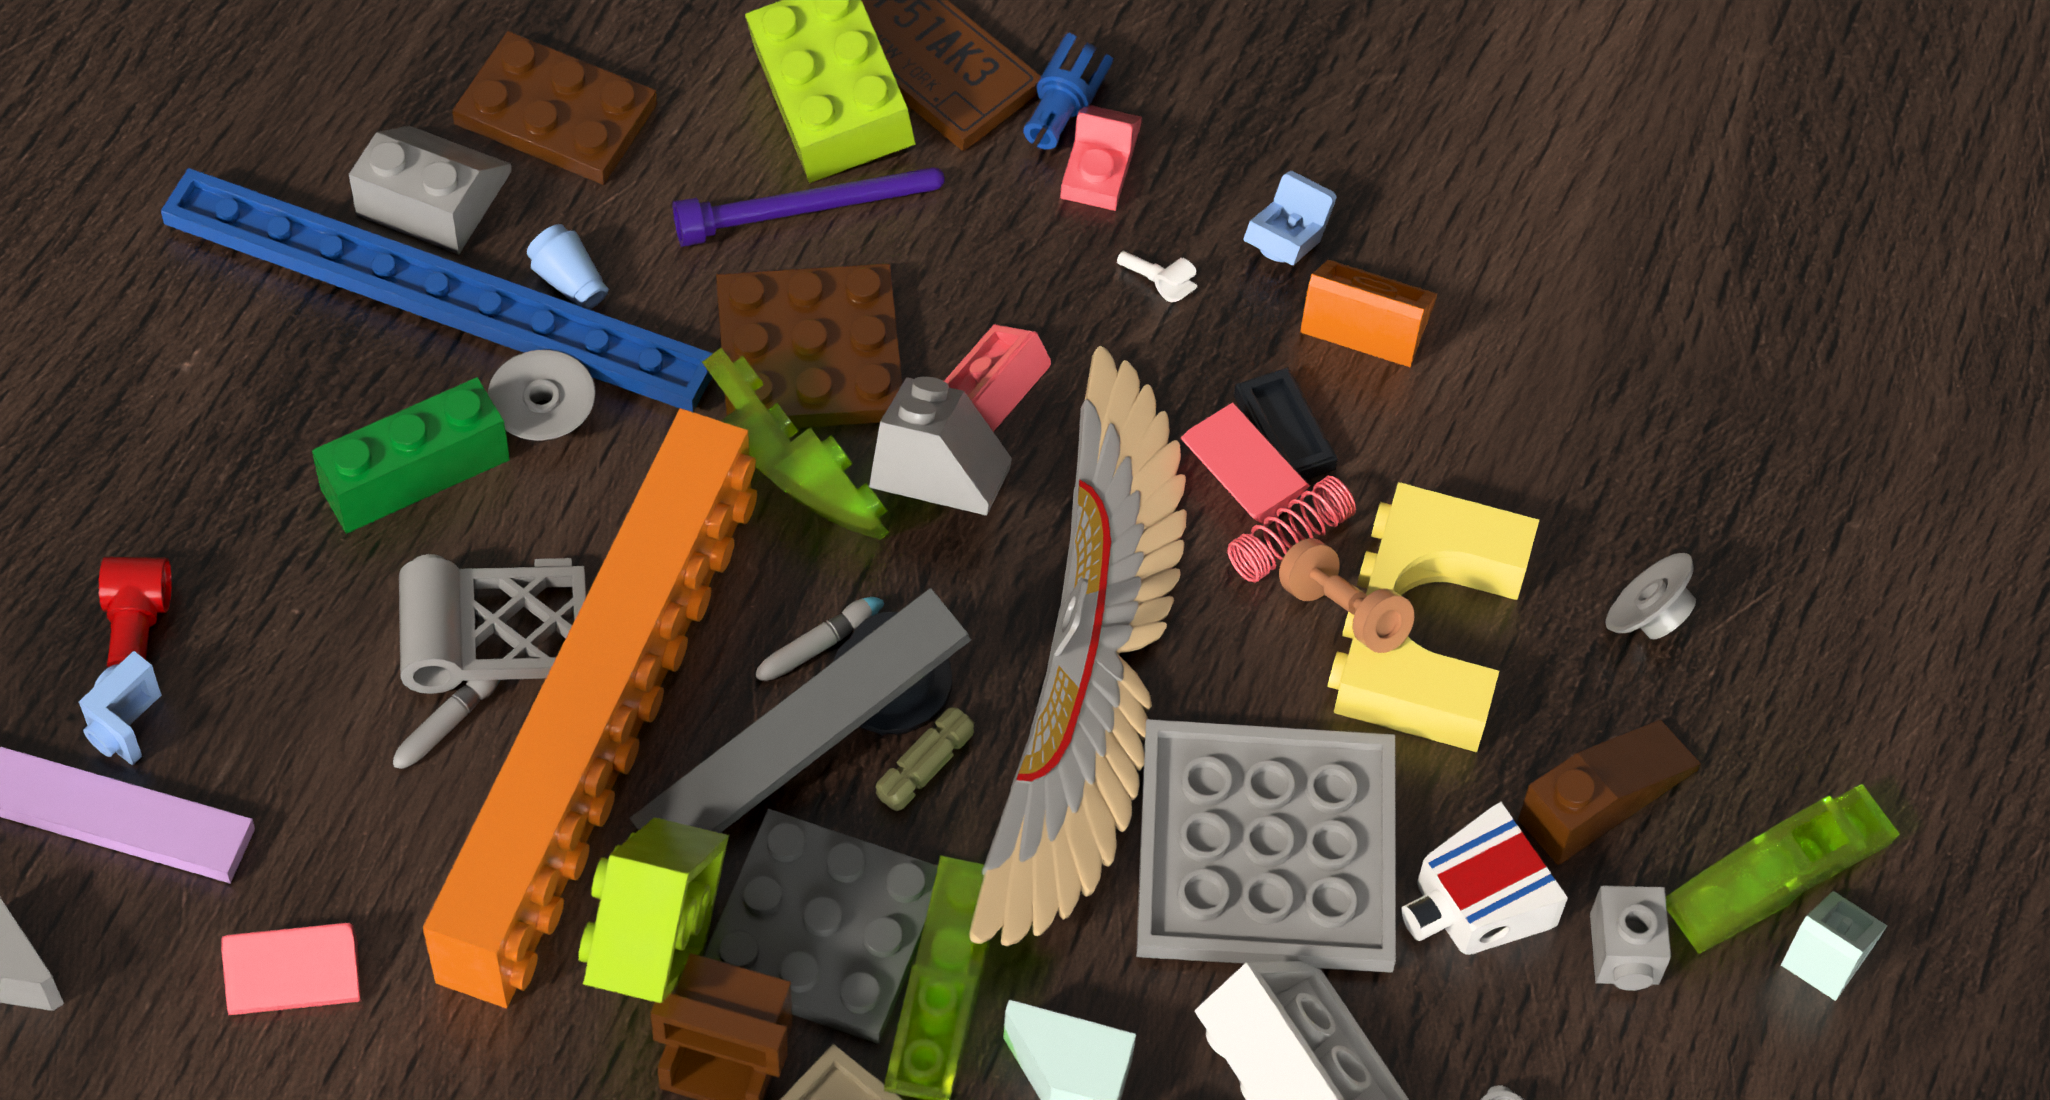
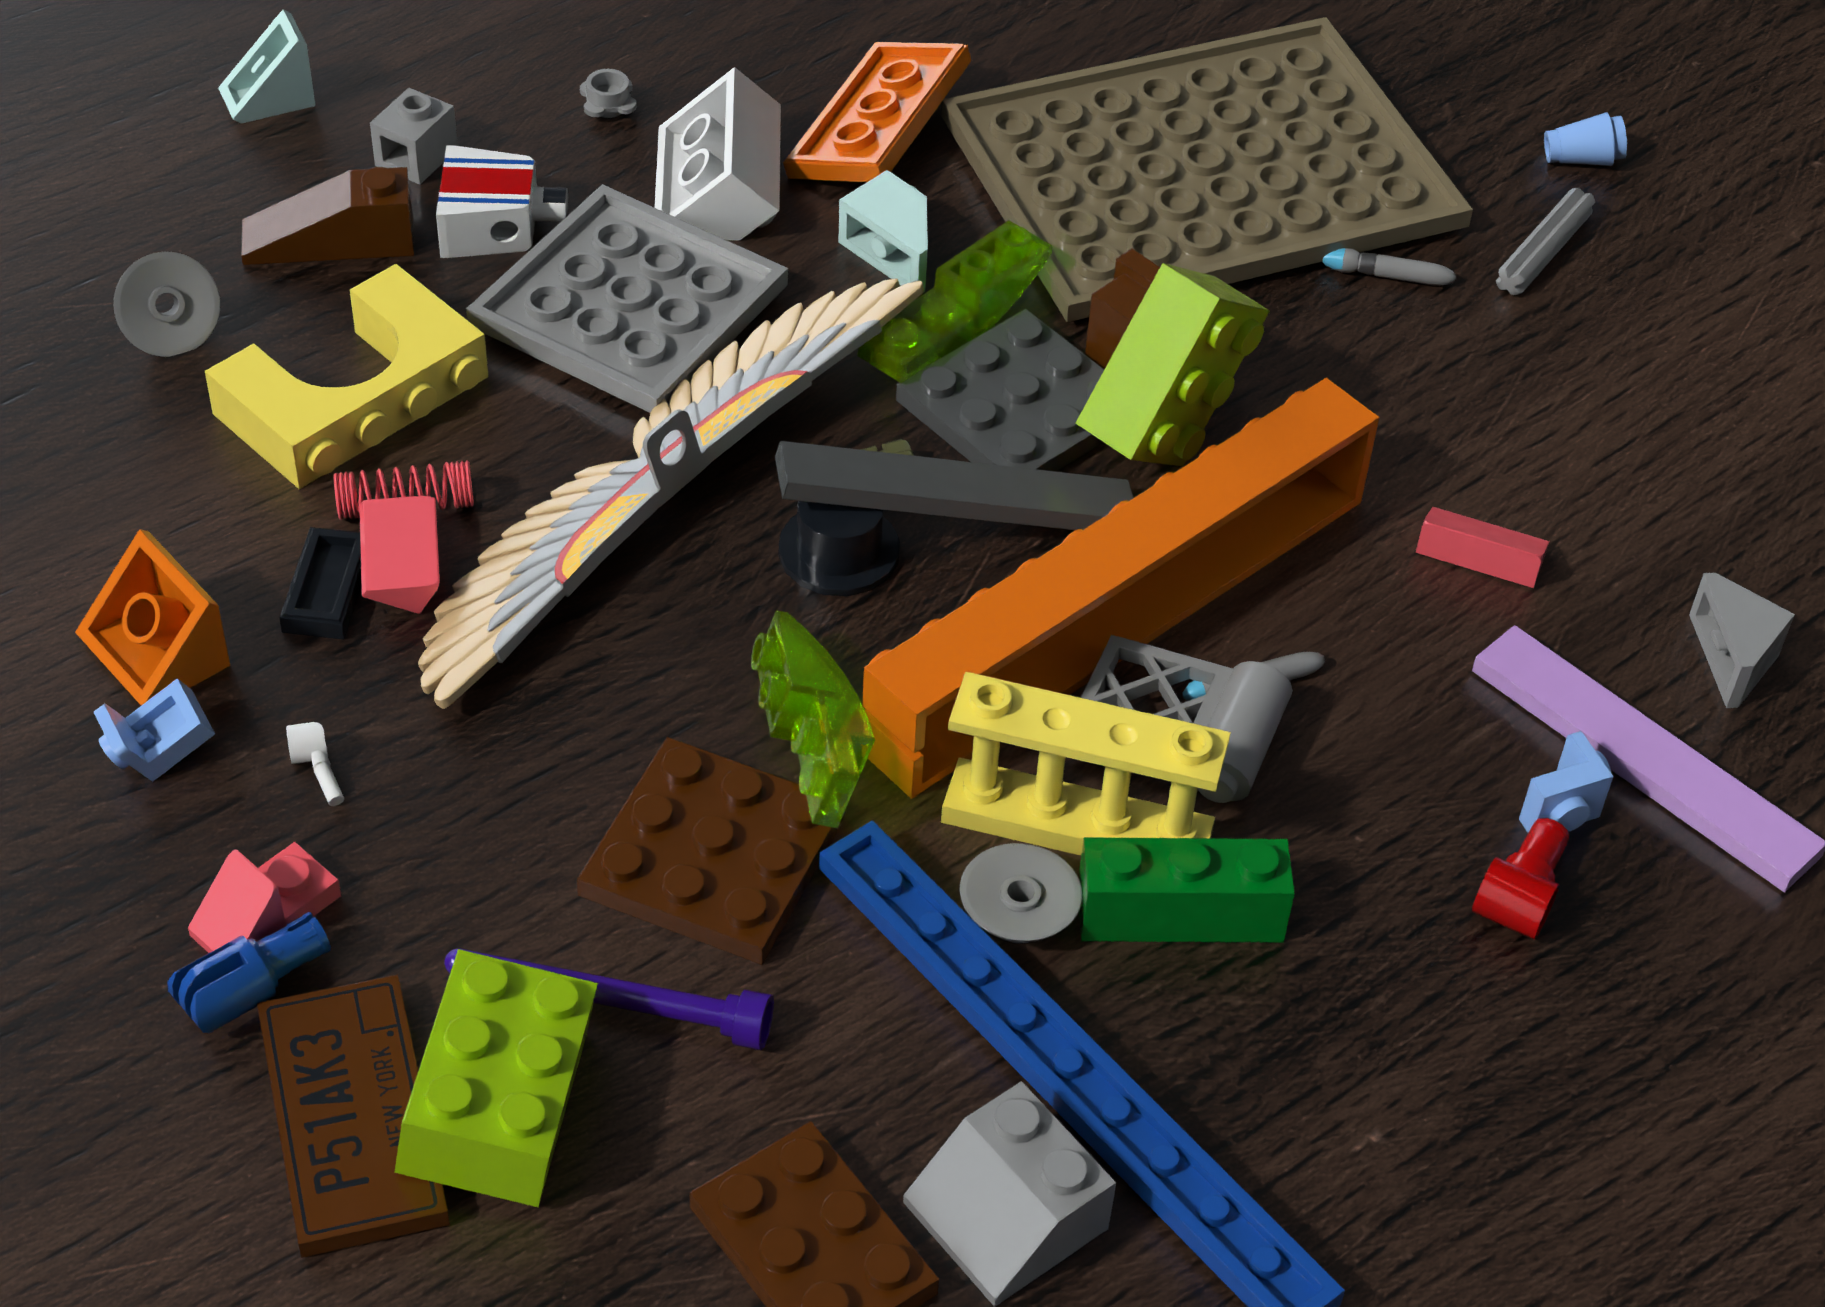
camera: 150 degrees left, 10 degrees down
(532, 503) = (1058, 725): none -> light yellow fence
(566, 265) = (914, 1029): light blue cone -> none
(818, 639) = (877, 595): light grey piece -> none
(938, 448) = (680, 652): light grey slope -> none
(1000, 371) = (561, 743): coral slope -> none
(1379, 619) = (419, 330): nougat wheel -> none
(1779, 867) = (282, 110): clear neon green slope -> none

